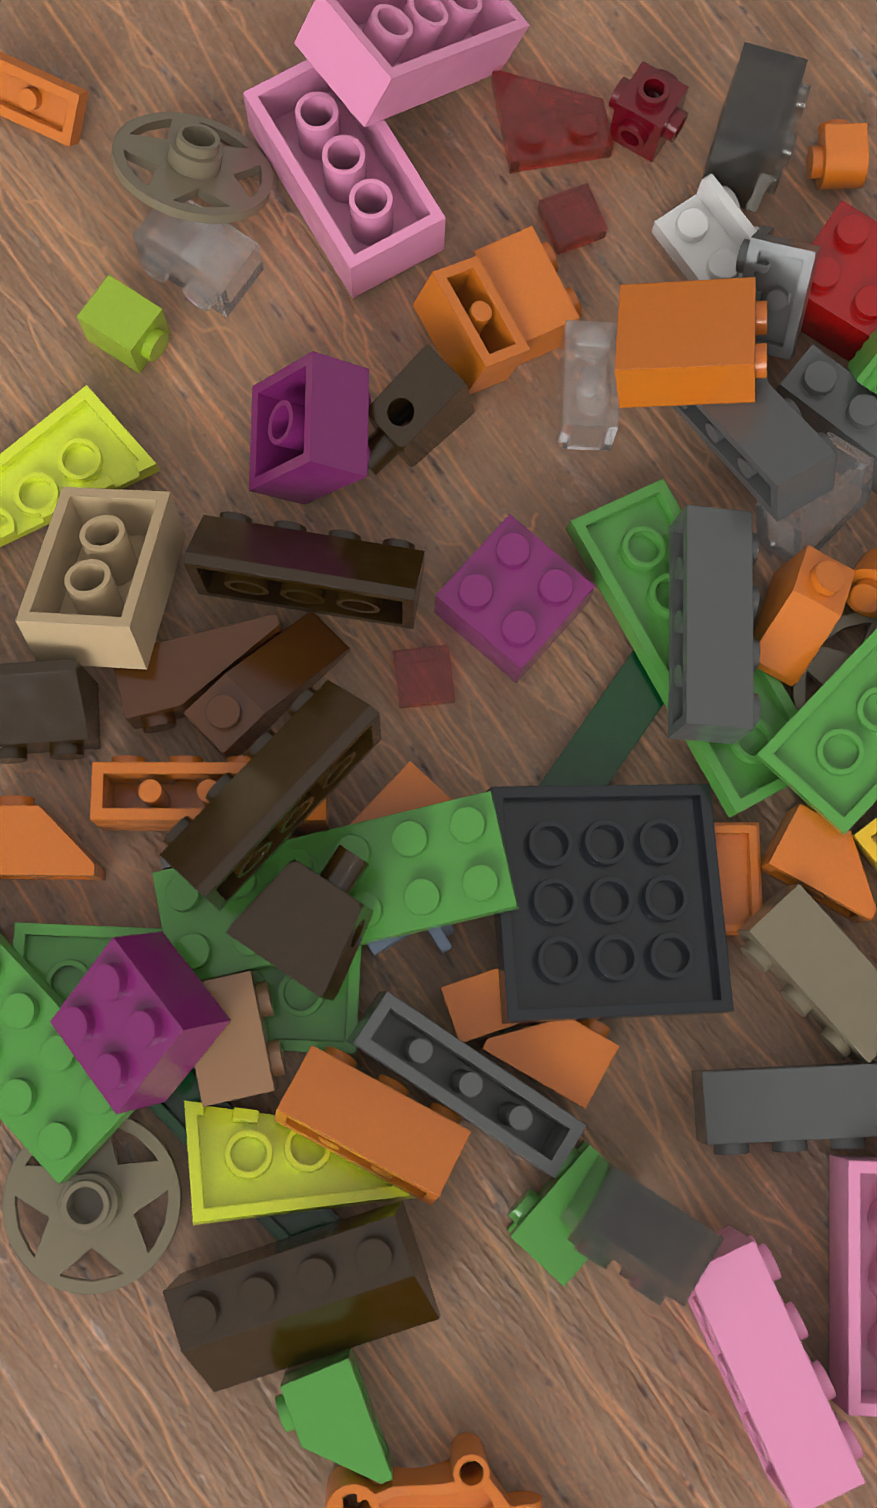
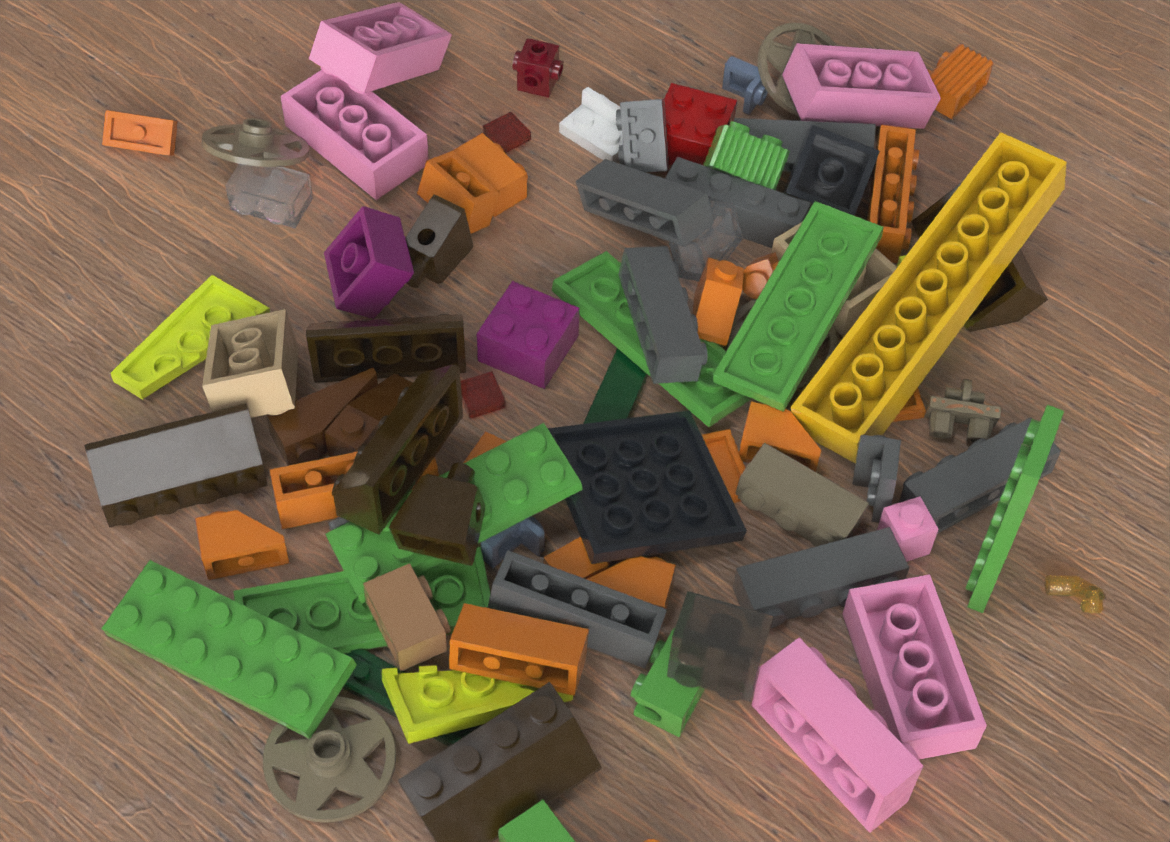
camera: 10 degrees left, 25 degrees down
(125, 324) = (229, 239): lime brick -> none
(139, 1021) = (341, 604): magenta brick -> none
(548, 123) = (477, 88): clear red wing -> none
(587, 386) = (543, 212): clear brick -> none
(689, 342) = (600, 165): orange brick -> none
(758, 123) = (607, 55): clear smoke brick -> none
(839, 155) = (664, 67): orange plate -> none

